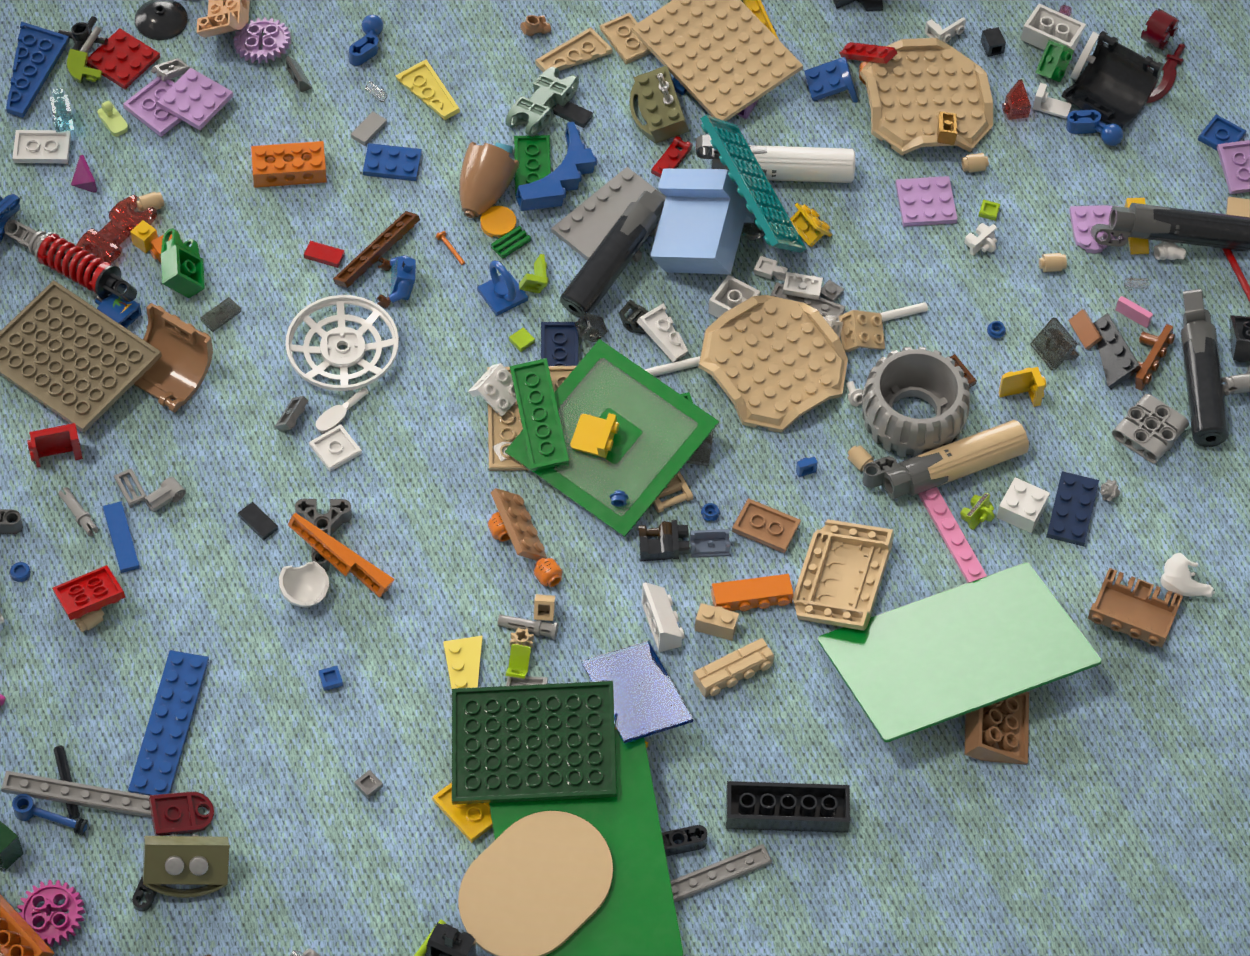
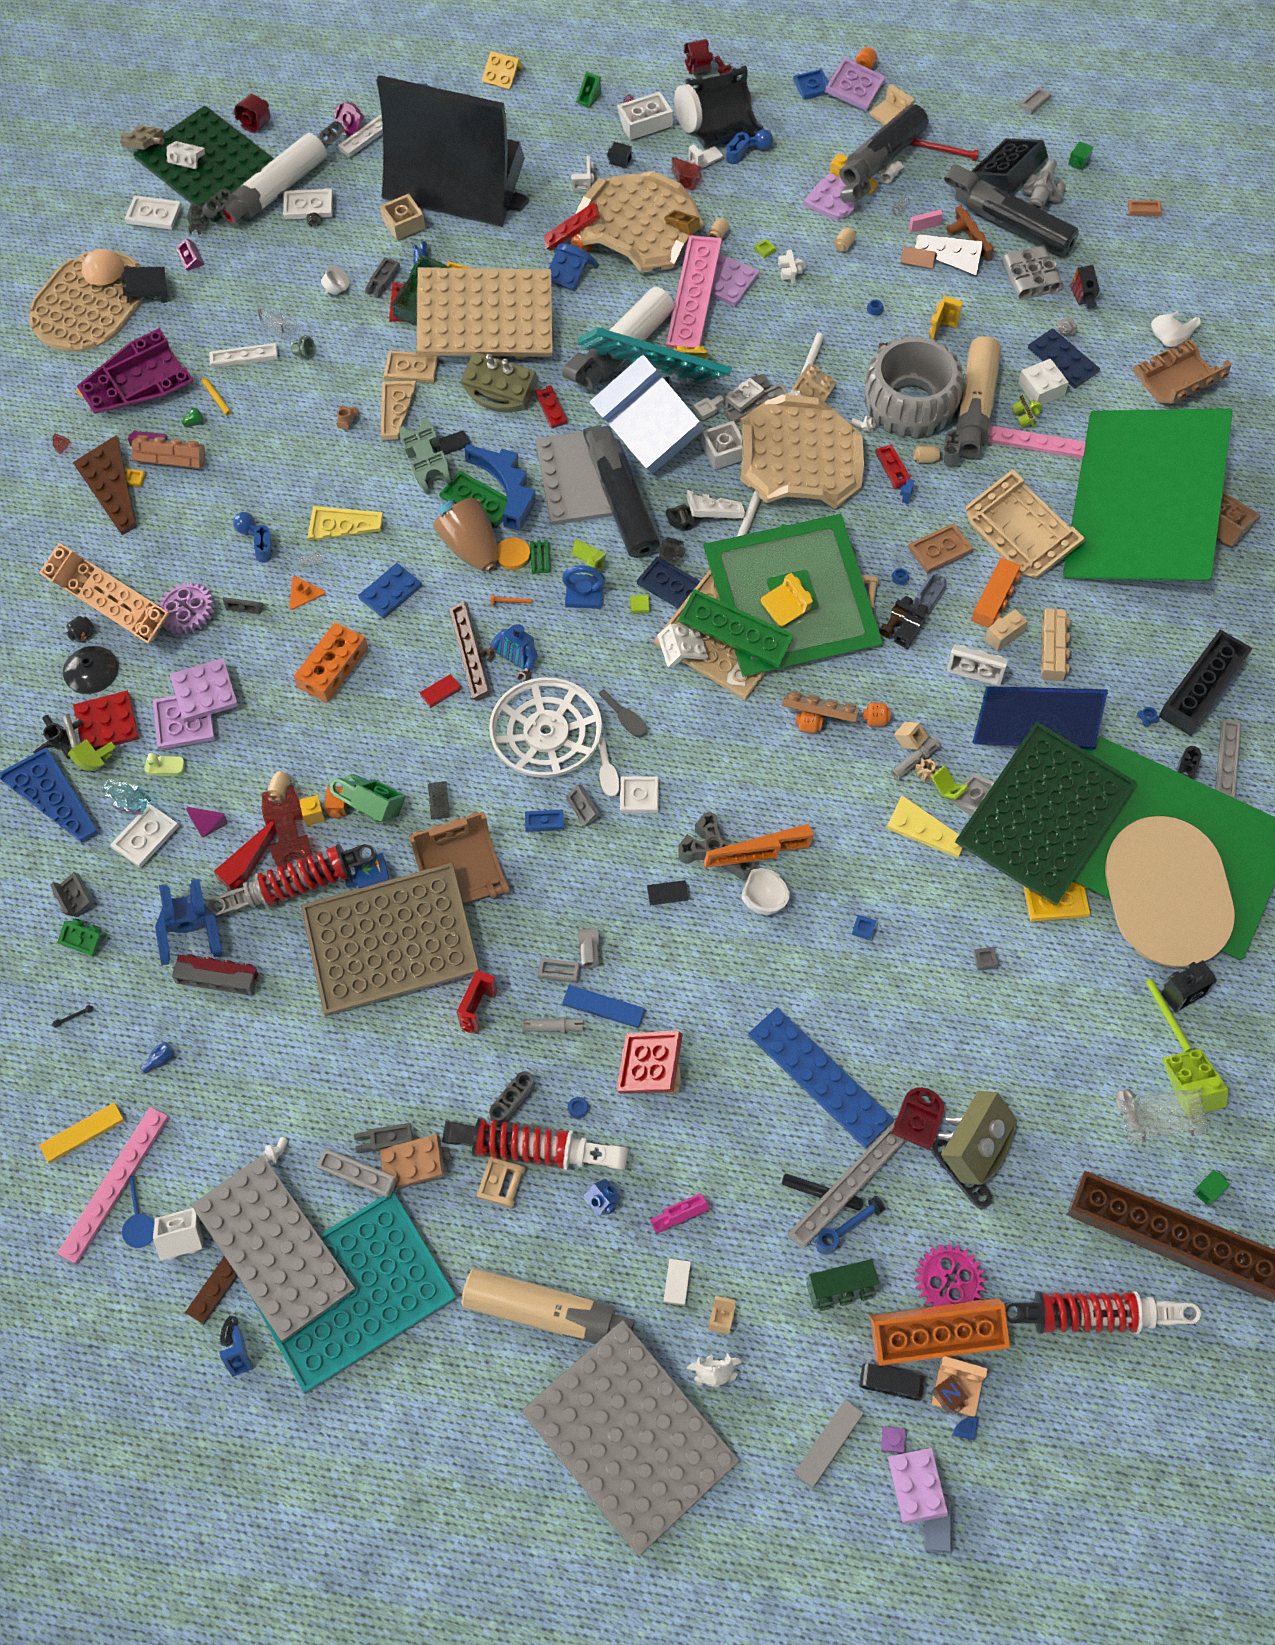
camera: 50 degrees left, 5 degrees up
(69, 222) = (242, 863): none -> red slope
(170, 69) = (154, 697): light grey tile -> none
(257, 396) = (544, 820): none -> blue plate
(342, 107) = (303, 592): none -> orange piece
(368, 128) = (342, 587): light grey tile -> none
(401, 395) = (628, 718): none -> dark grey piece
(619, 498) = (852, 623): blue plate -> none
(718, 777) = (1150, 712): none -> blue plate
(826, 440) = (892, 465): none -> red plate
(882, 184) = (694, 292): none -> bright pink plate
(1054, 61) = (671, 130): green bracket -> none
(1054, 344) = (920, 280): clear smoke bracket -> none
(1167, 478) = (1085, 286): none -> black torso

